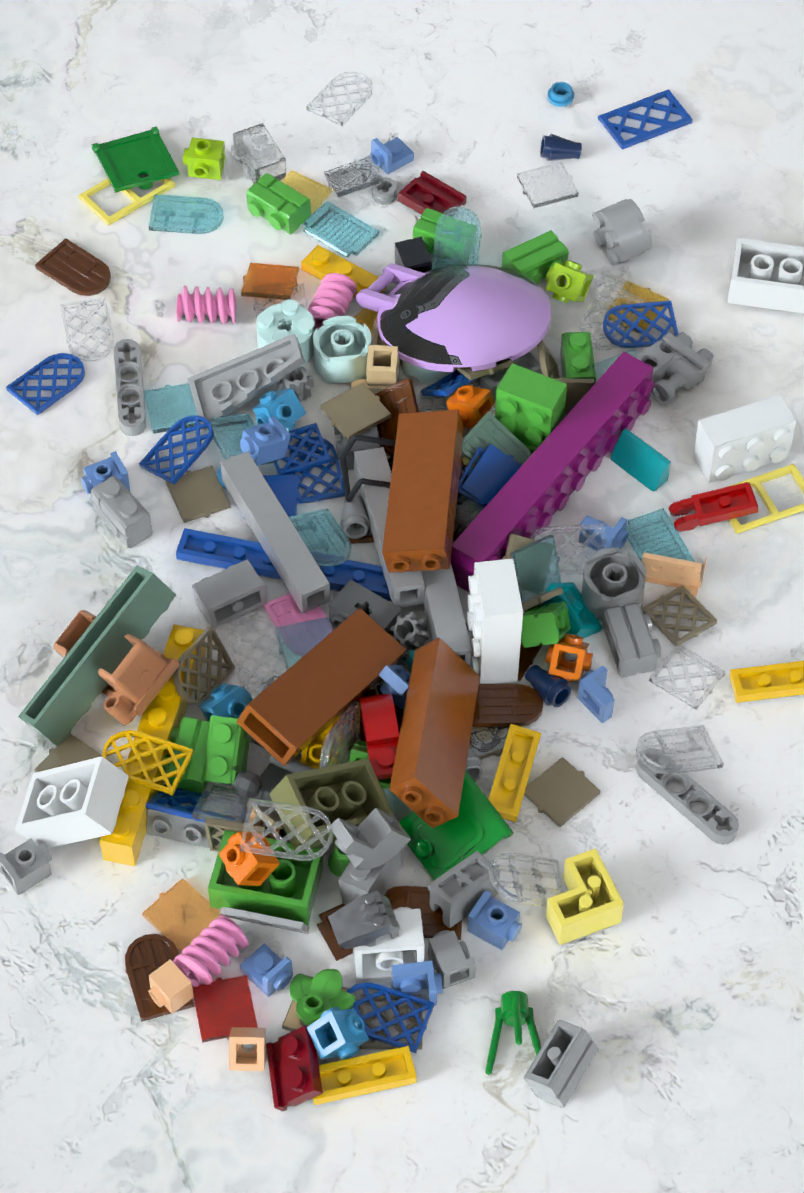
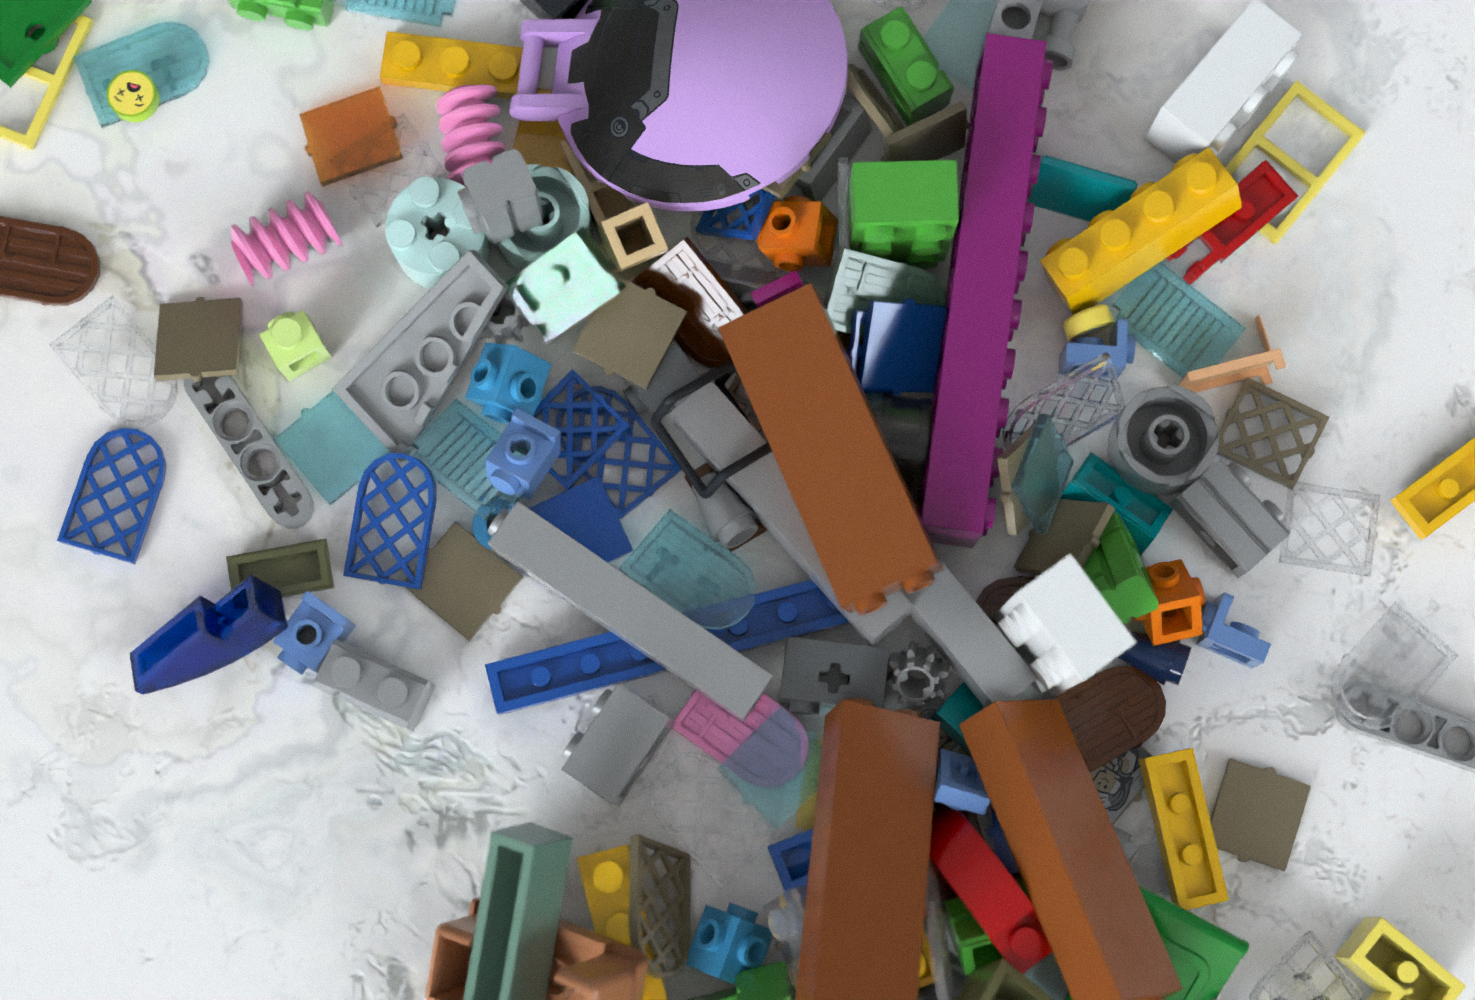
camera: 30 degrees left, 25 degrees up
(54, 453) = (209, 636): none -> clear blue slope
(100, 445) = (287, 568): none -> olive tile
(135, 331) = (198, 339): none -> dark tan piece
(172, 219) = (133, 96): none -> tile
(181, 343) = (294, 344): none -> yellowish green brick
(324, 311) = (500, 197): none -> light grey brick
(333, 372) = (564, 285): none -> clear green plate
(607, 514) = (1088, 322): none -> light yellow tile
(658, 483) = (1141, 231): none -> yellow brick

